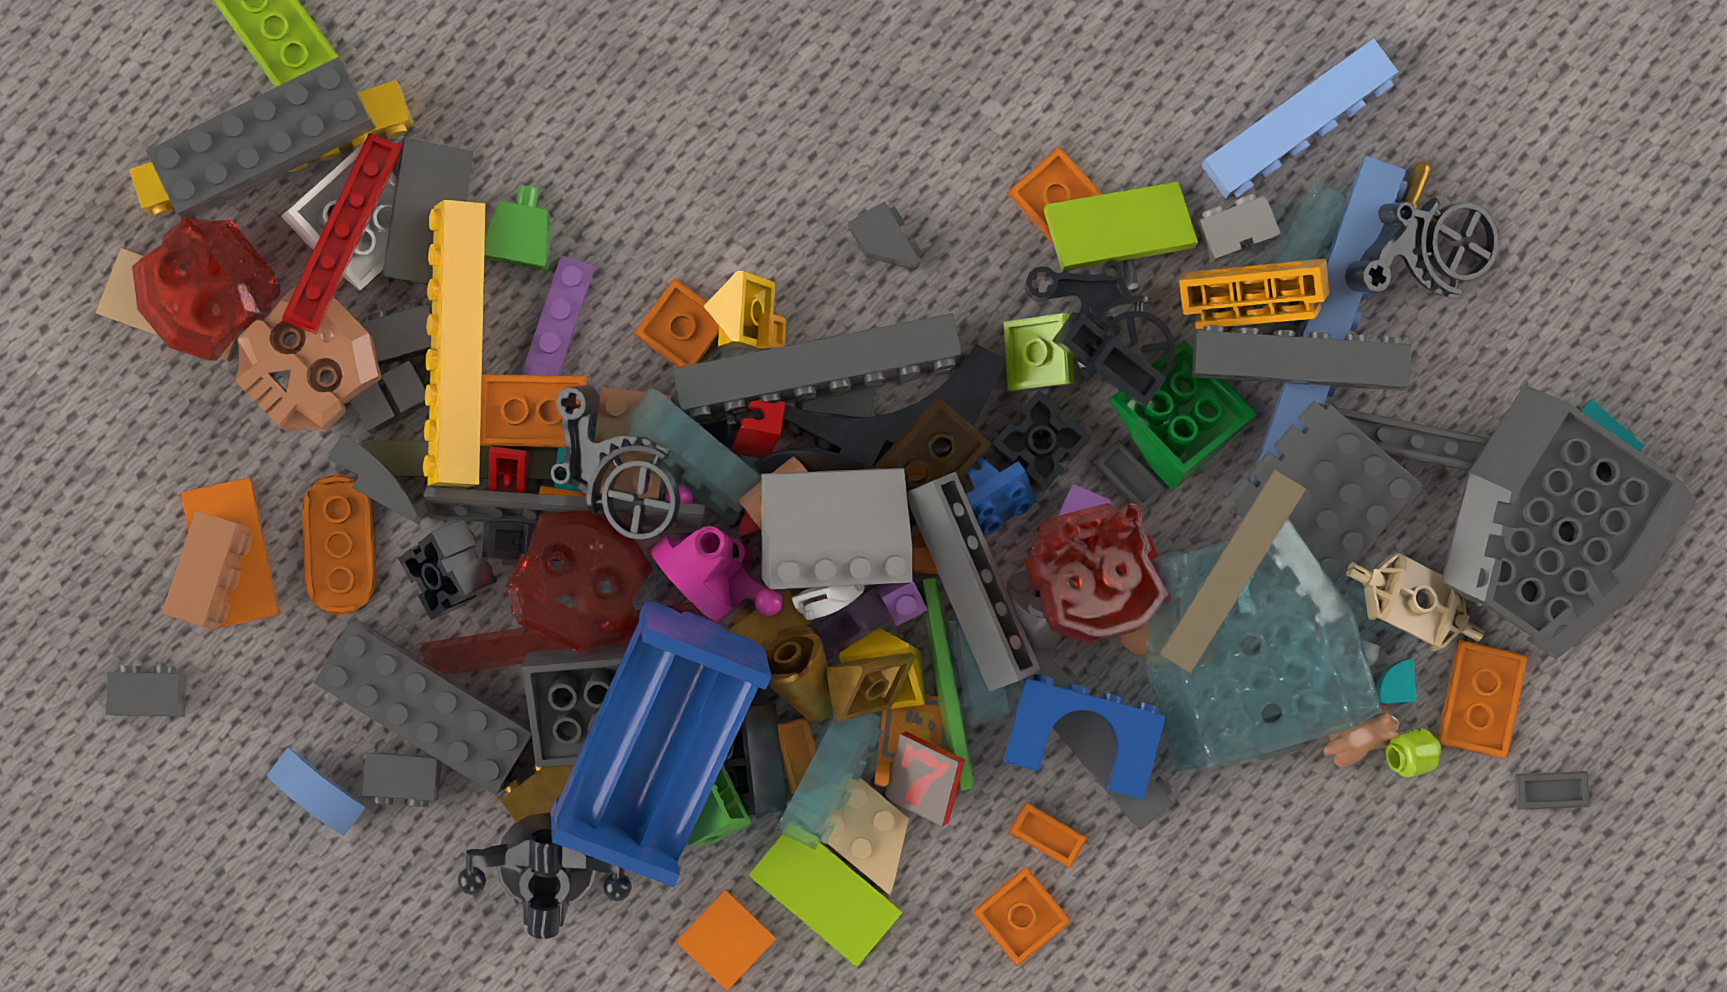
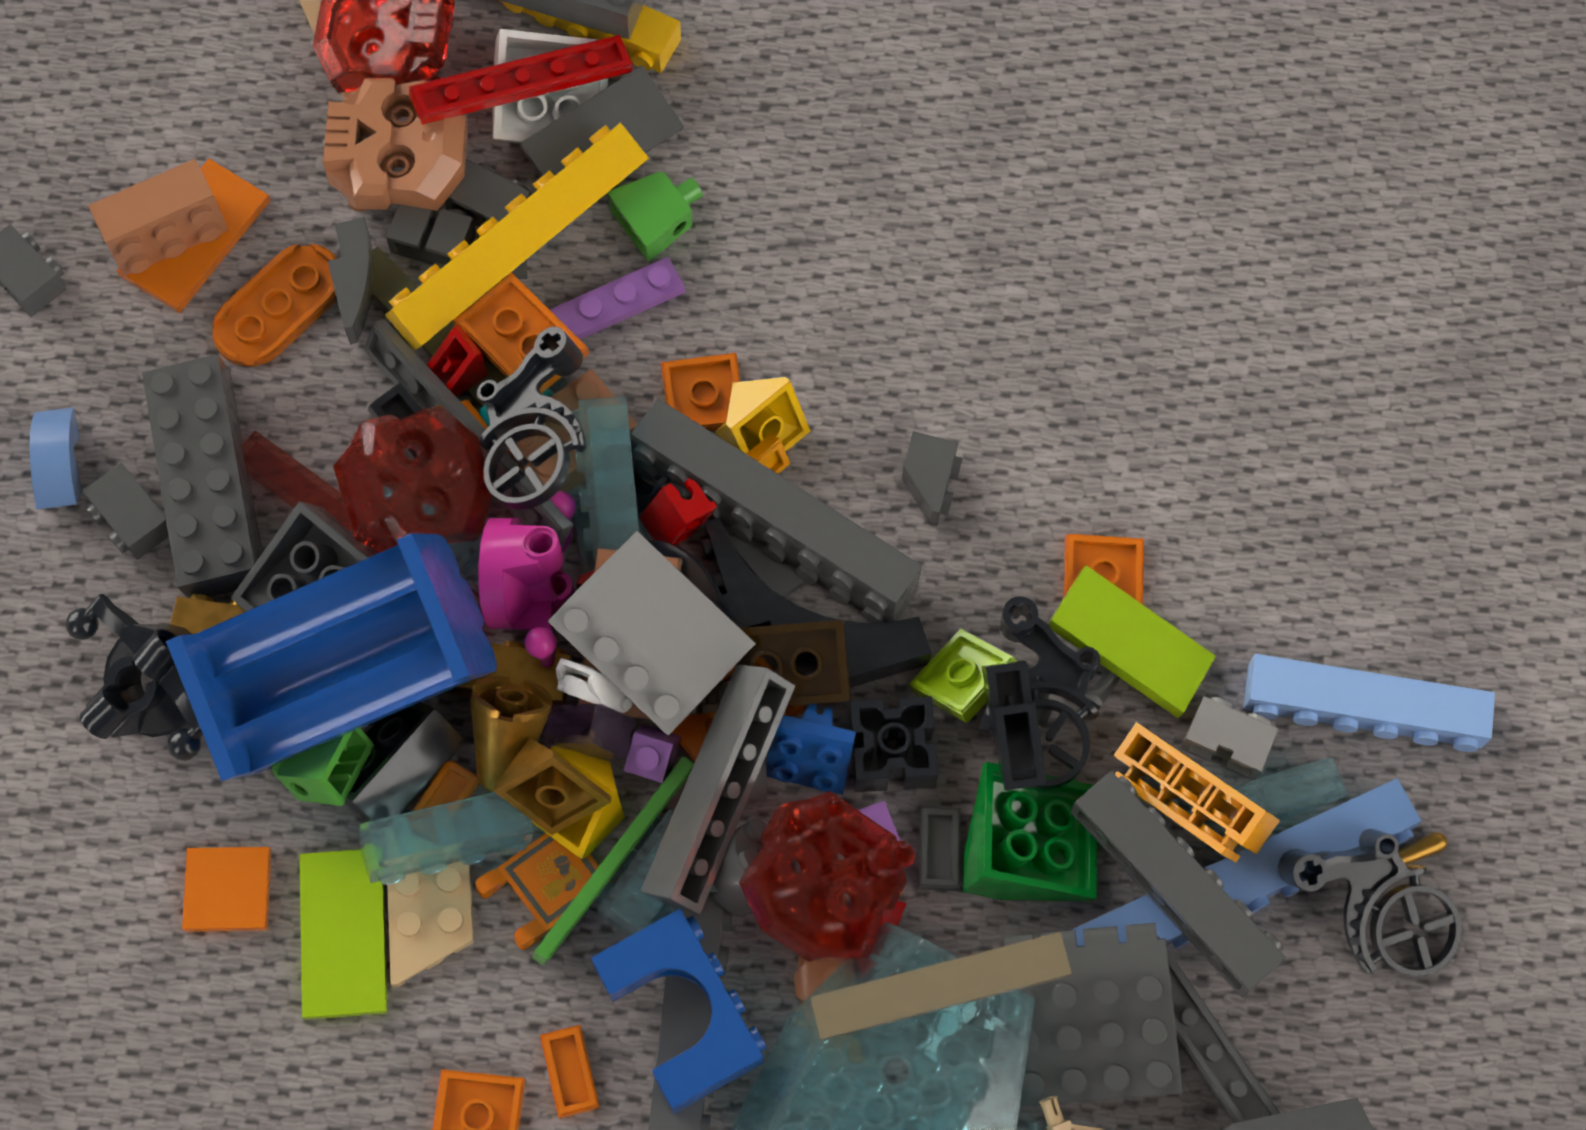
camera: 45 degrees right, 15 degrees down
(447, 569) = (331, 388): black brick -> none
(924, 778) = (516, 915): tile -> none

